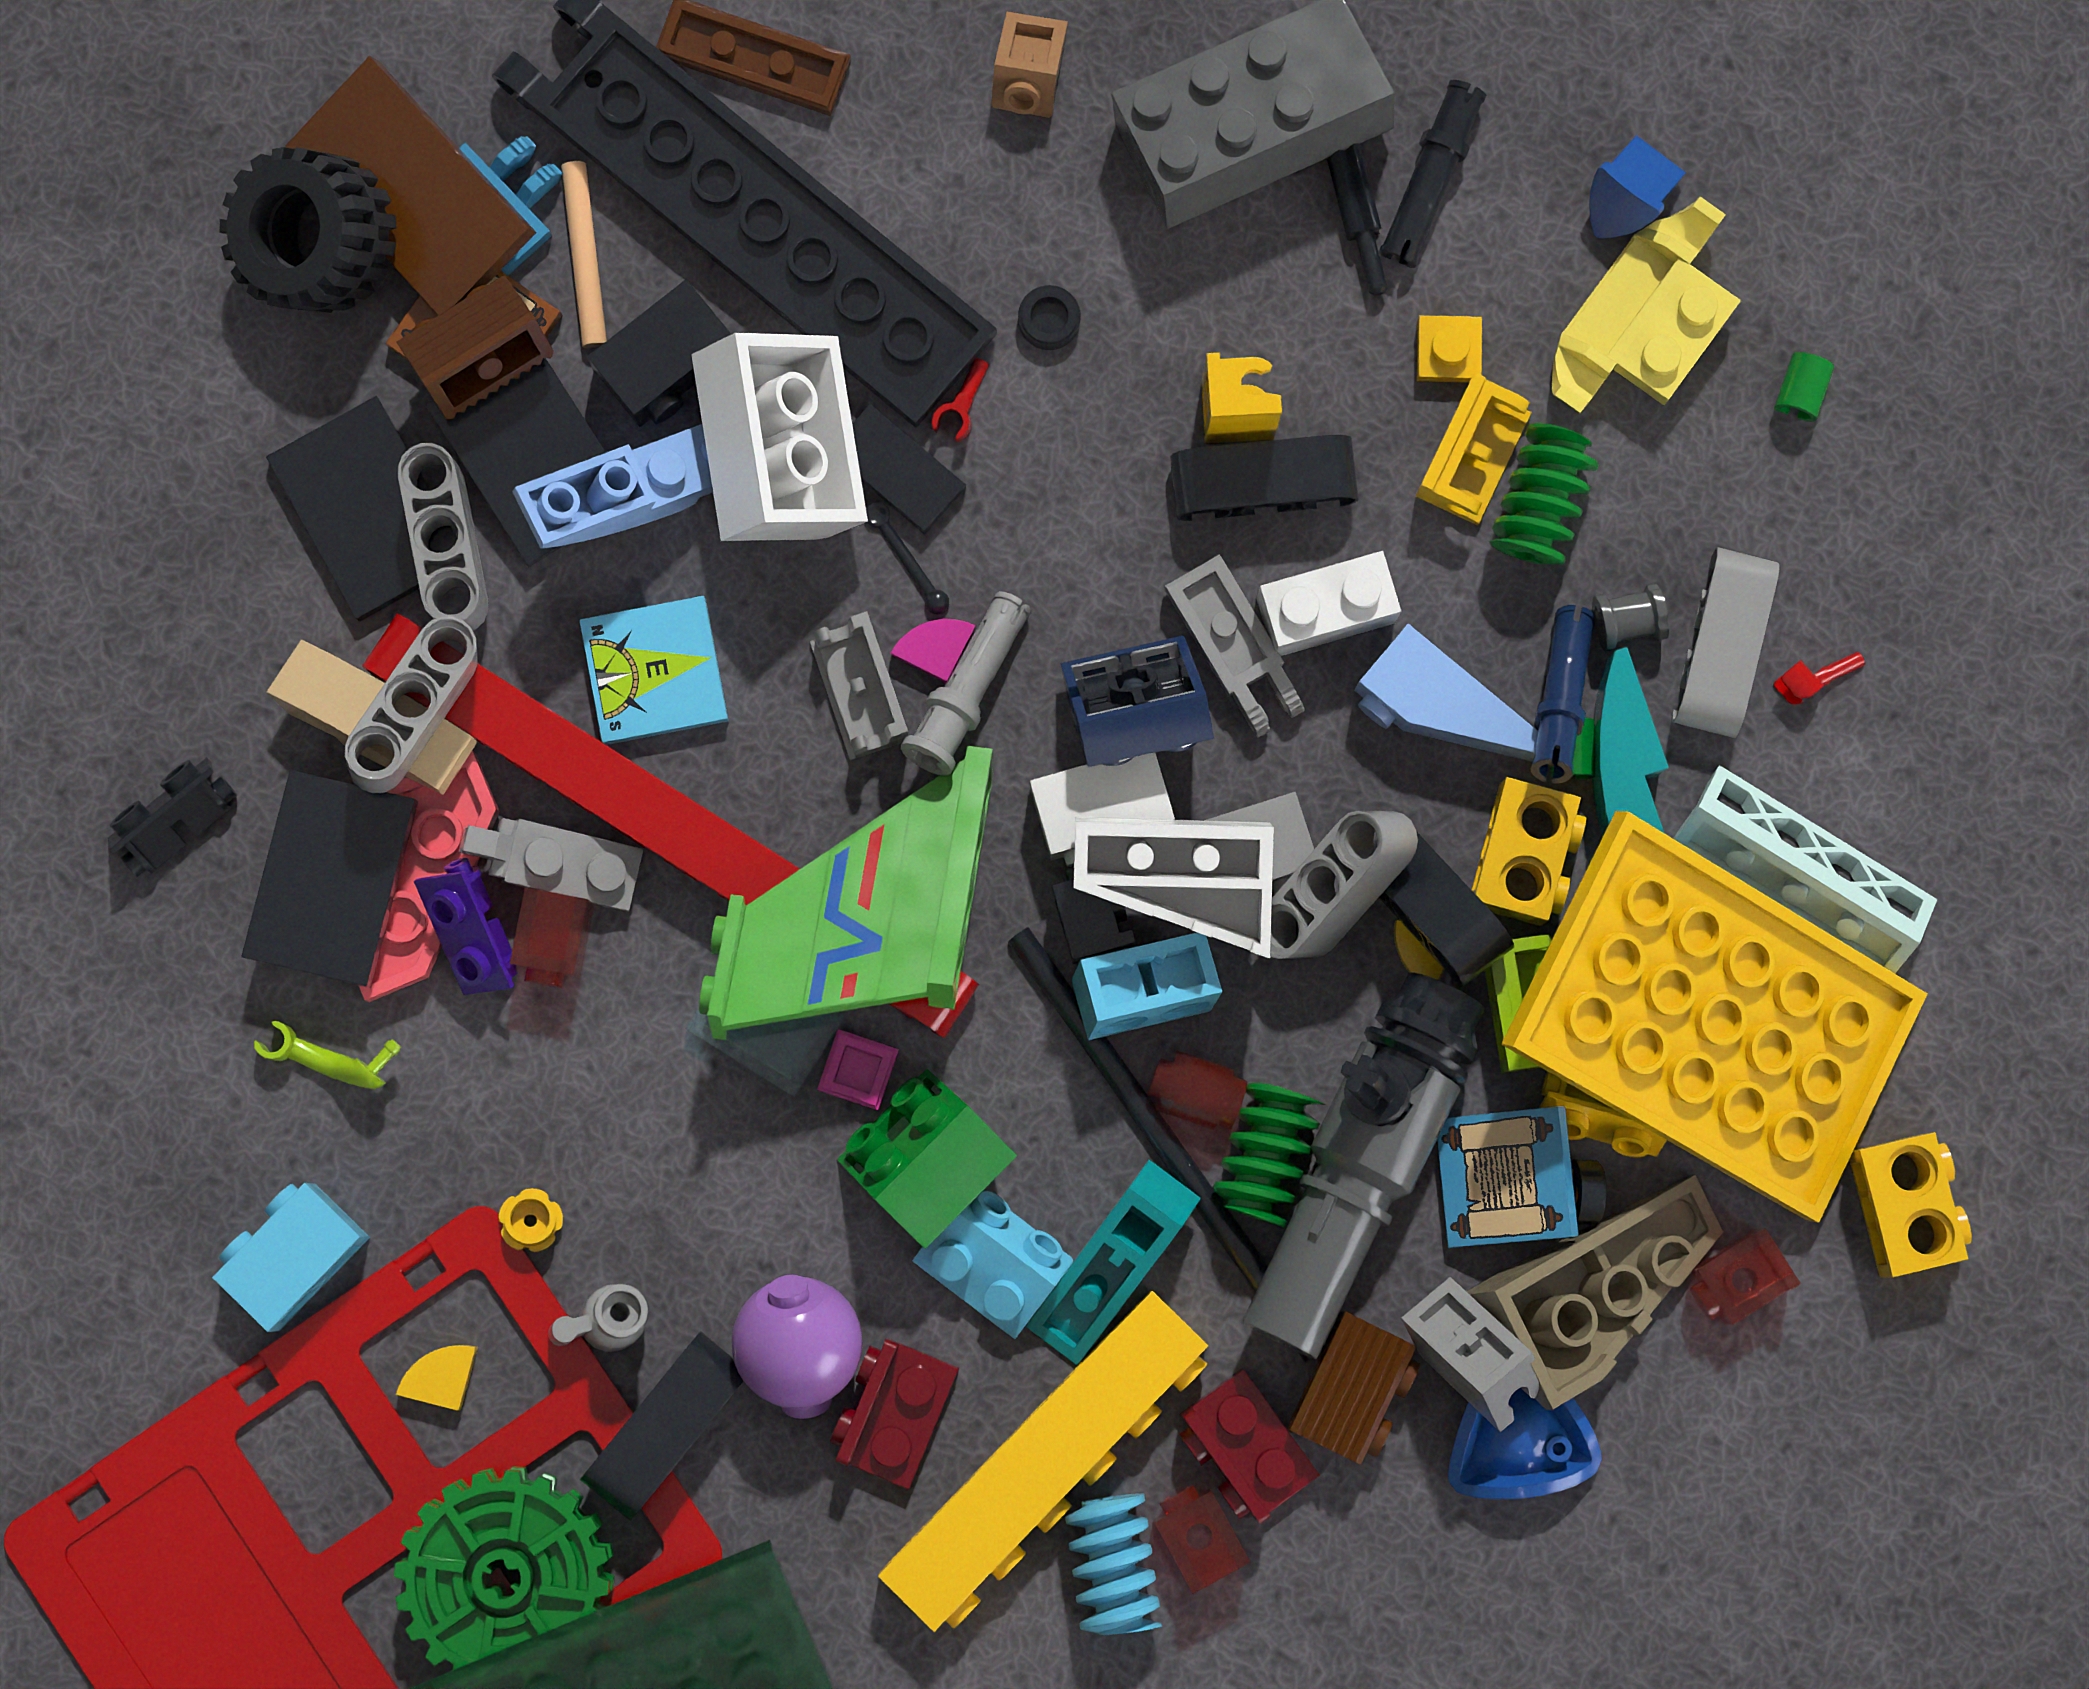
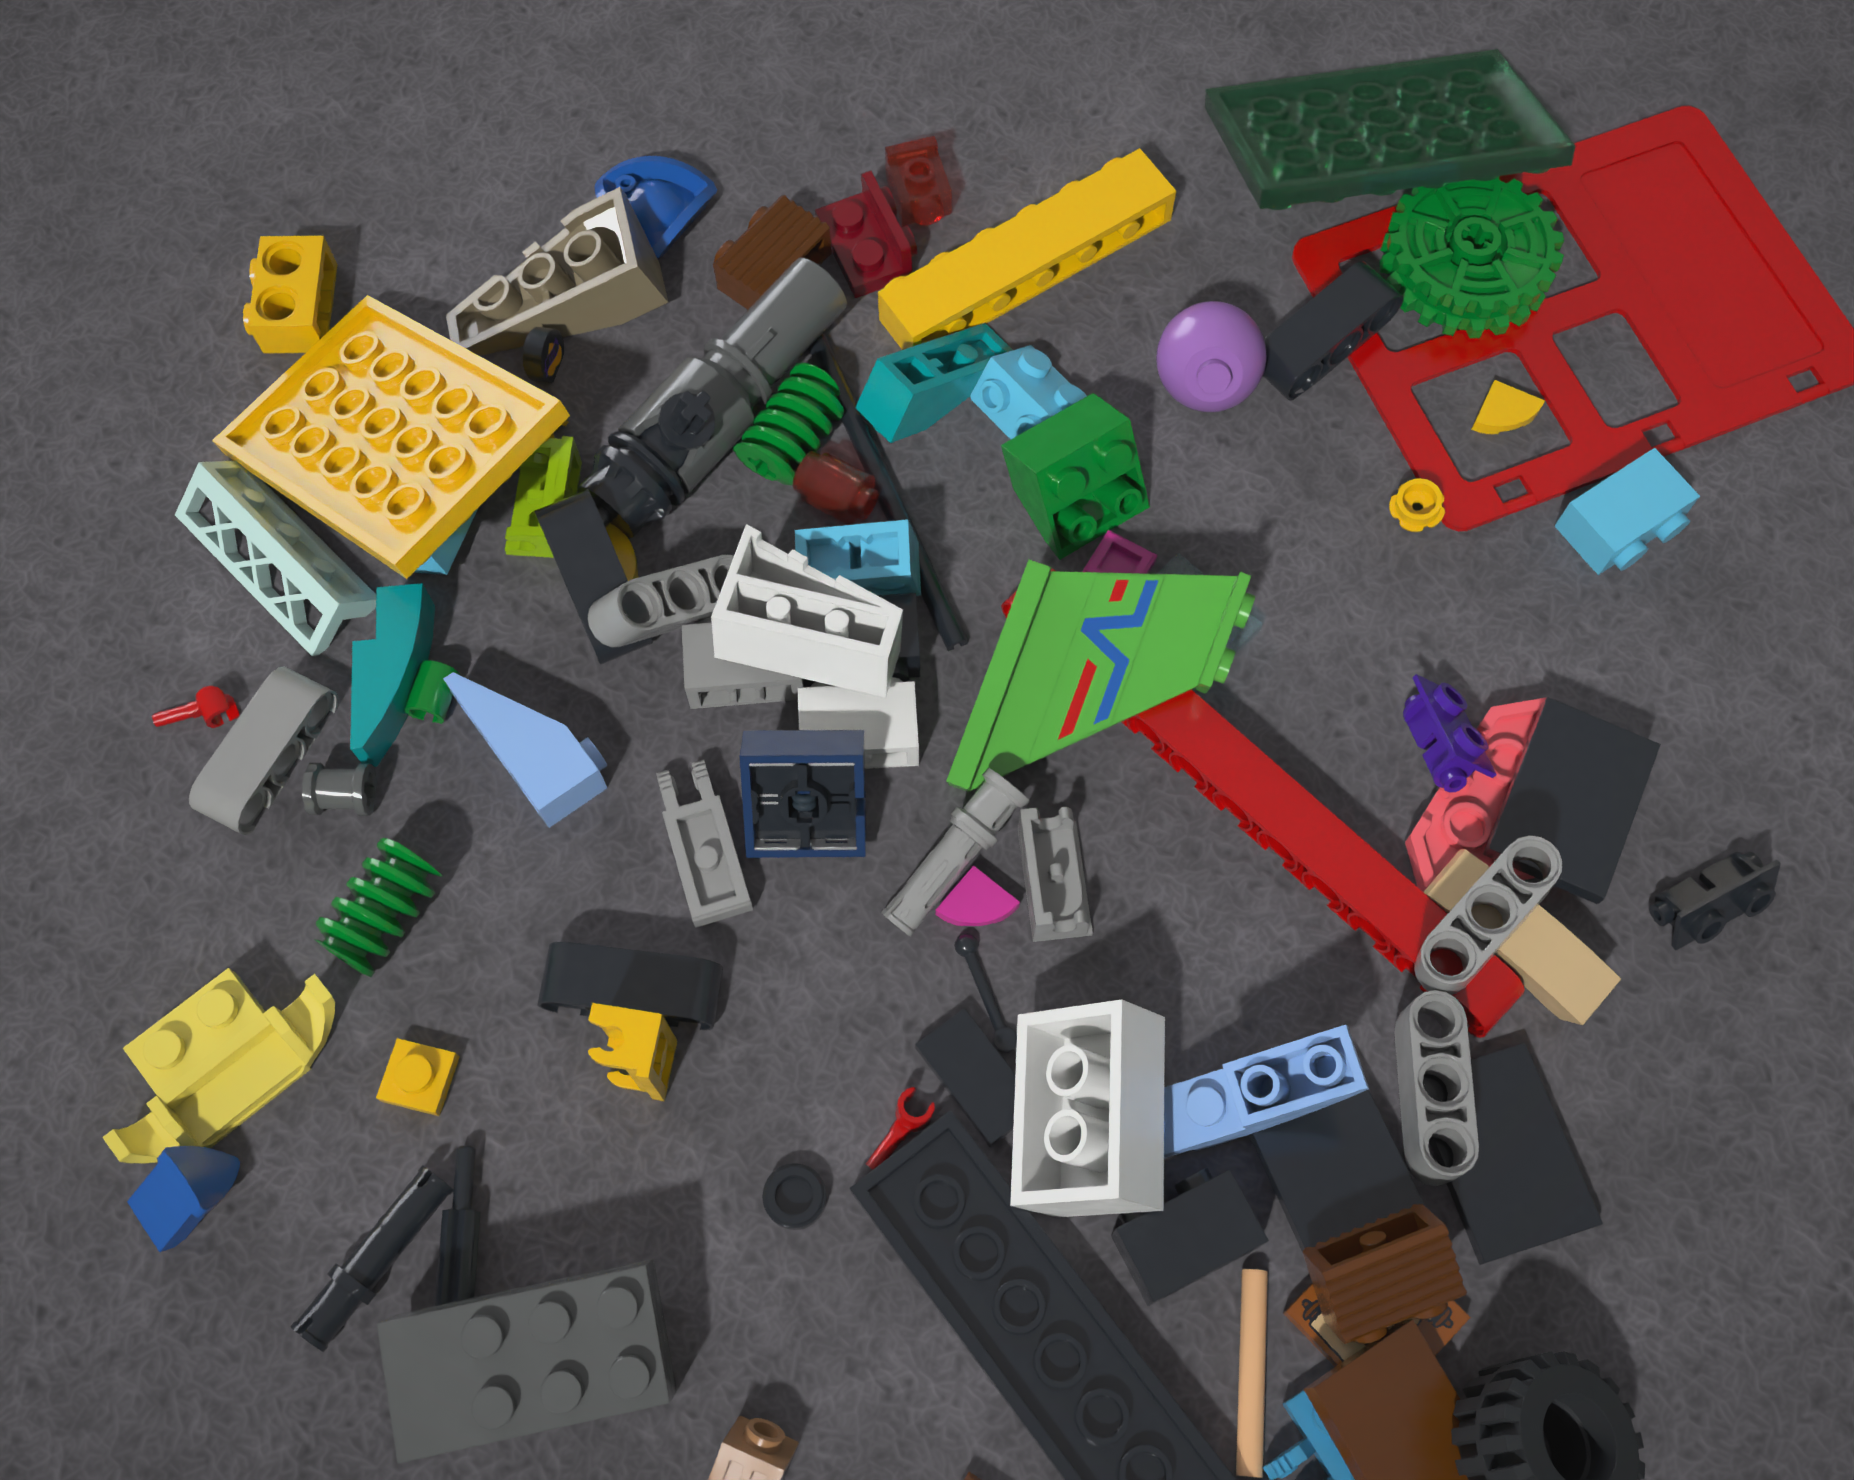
camera: 165 degrees left, 15 degrees down
(328, 1062) = (1575, 660): lime piece -> none
(551, 937) = (1372, 718): clear red brick -> none
(557, 861) = (1364, 780): light grey hinge -> none
(608, 1319) = (1361, 416): light grey piece -> none
(654, 670) = (1243, 937): medium azure tile -> none
(894, 1413) = (1137, 314): dark red bracket -> none
(1112, 1565) = (989, 175): medium azure piece -> none
(1328, 603) = (605, 852): white brick -> none
(1472, 1351) = (670, 245): light grey hinge -> none
(1475, 449) = (430, 972): yellow hinge -> none
(1507, 1177) = (601, 367): tile -> none
(1510, 847) = (515, 616): yellow brick -> none
(1560, 714) = (422, 719): dark blue pin -> none
(1765, 1262) = (441, 272): clear red brick -> none
(1804, 385) = (101, 964): green hinge -> none

